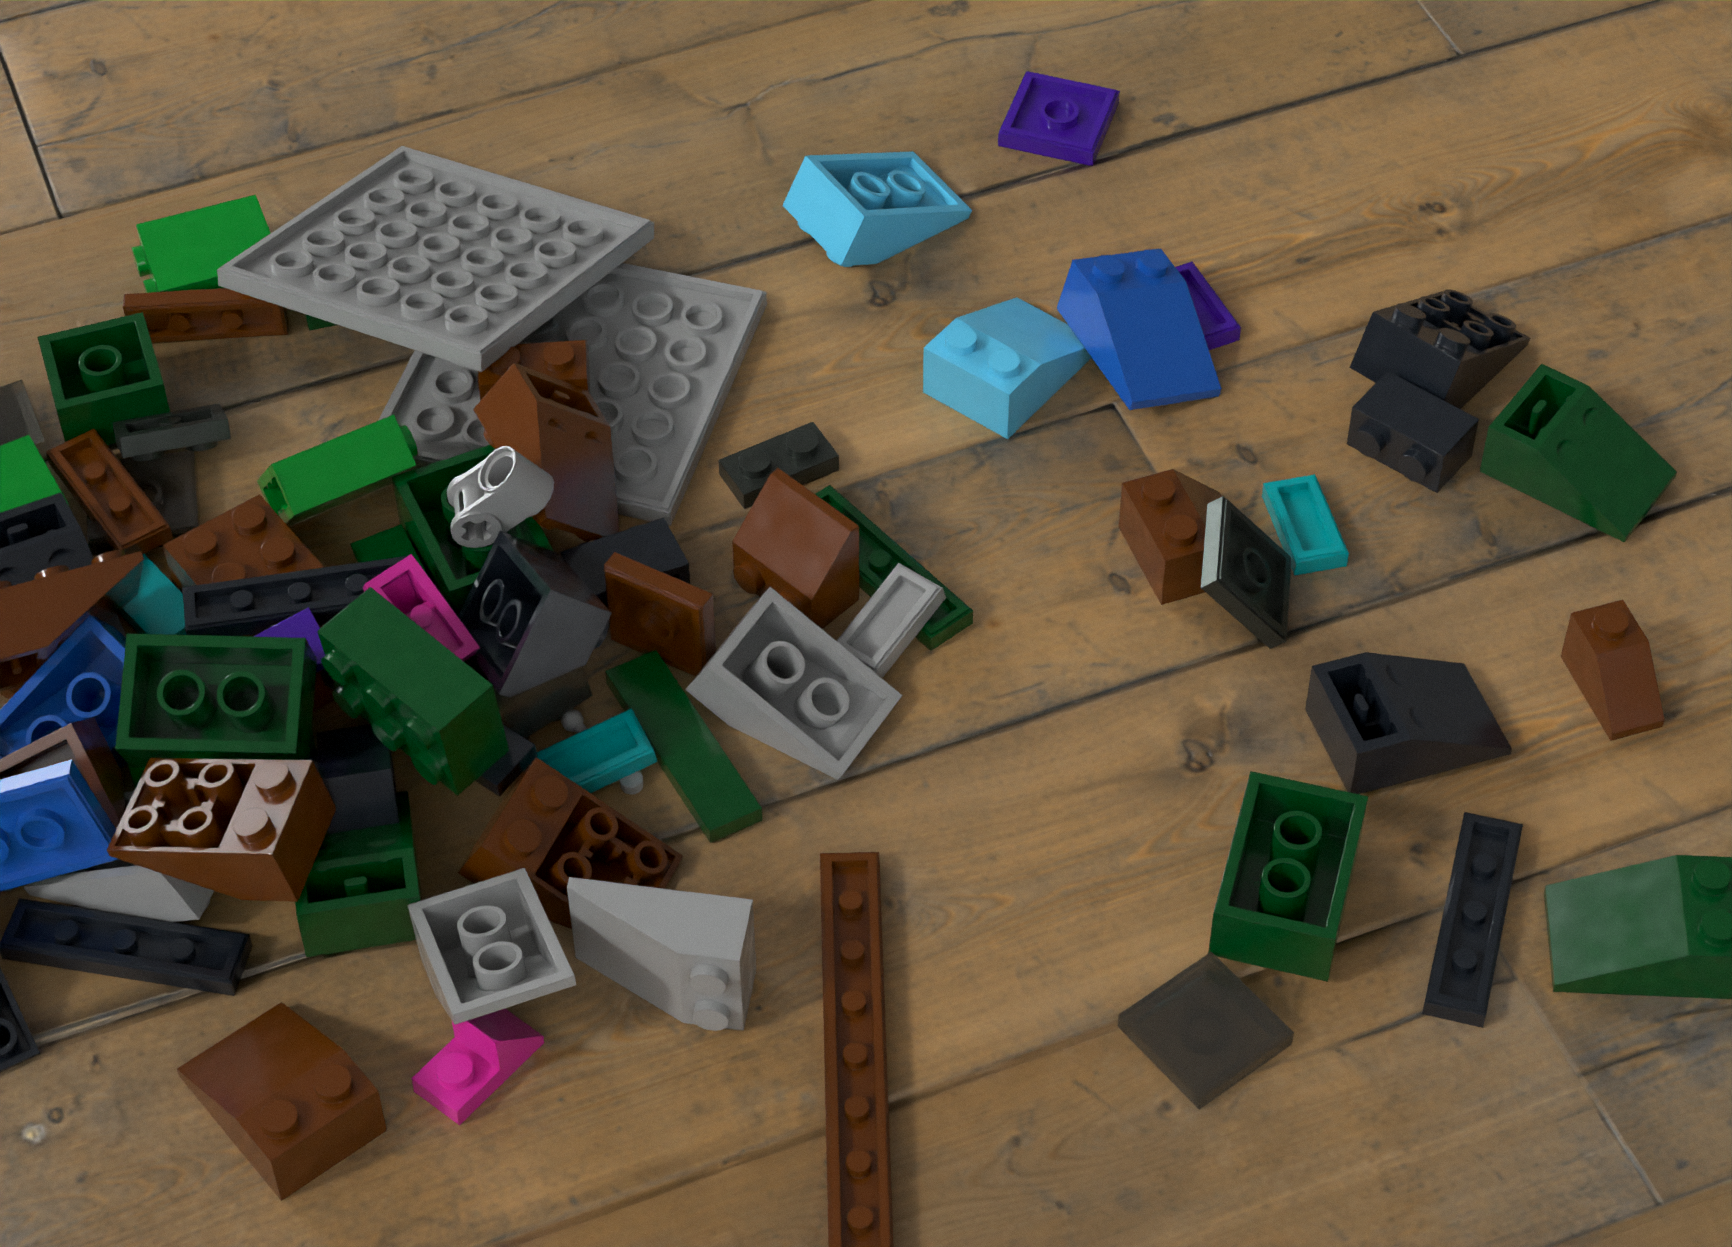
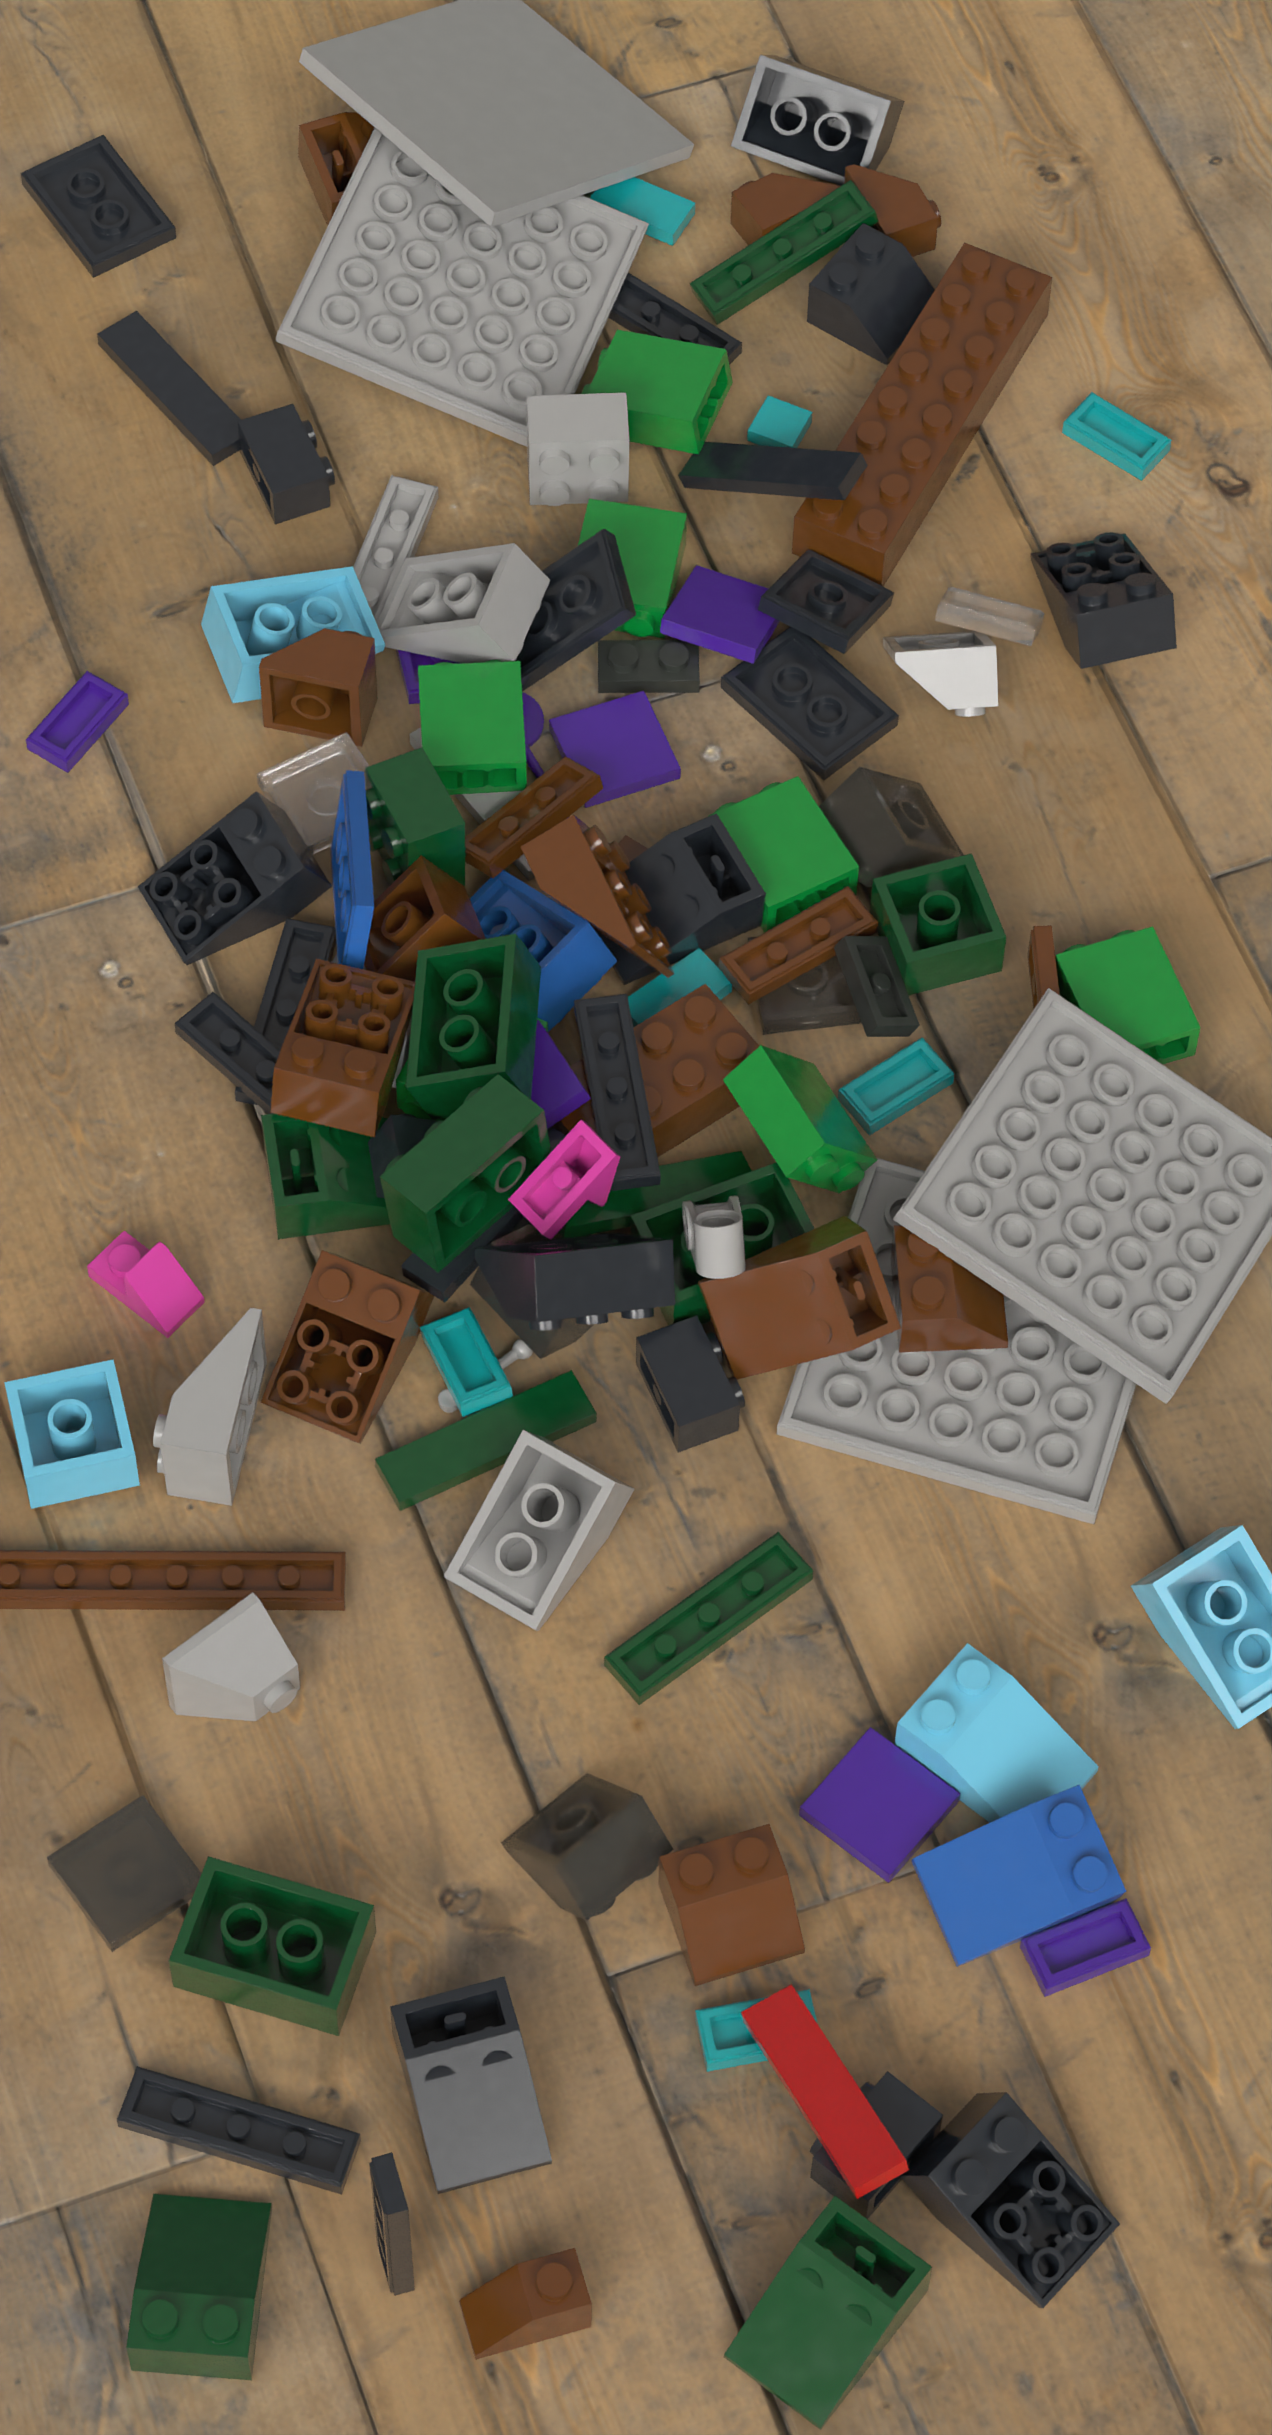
camera: 90 degrees right, 10 degrees up
(193, 966) = (231, 1047): none -> black tile
(273, 426) = (895, 1086): none -> teal tile
(286, 1098) = (115, 1136): reddish brown slope -> none
(489, 946) = (213, 1266): light grey slope -> none
(659, 614) = (610, 1399): reddish brown tile -> none
(691, 1095) = (72, 1434): none -> medium azure brick
(798, 550) = (692, 1529): reddish brown slope -> none
(799, 453) = (849, 1528): pearl dark grey plate -> none
(891, 619) = (621, 1616): light grey tile -> none
(969, 925) = (233, 1667): none -> light grey slope
(1068, 441) = (879, 1804): none -> dark purple tile
(1137, 641) = (589, 1845): none -> clear smoke slope
(1246, 572) = (658, 1943): pearl dark grey tile -> none
(1380, 446) = (824, 2091): none -> red tile
(1602, 715) = (392, 2224): none -> black tile

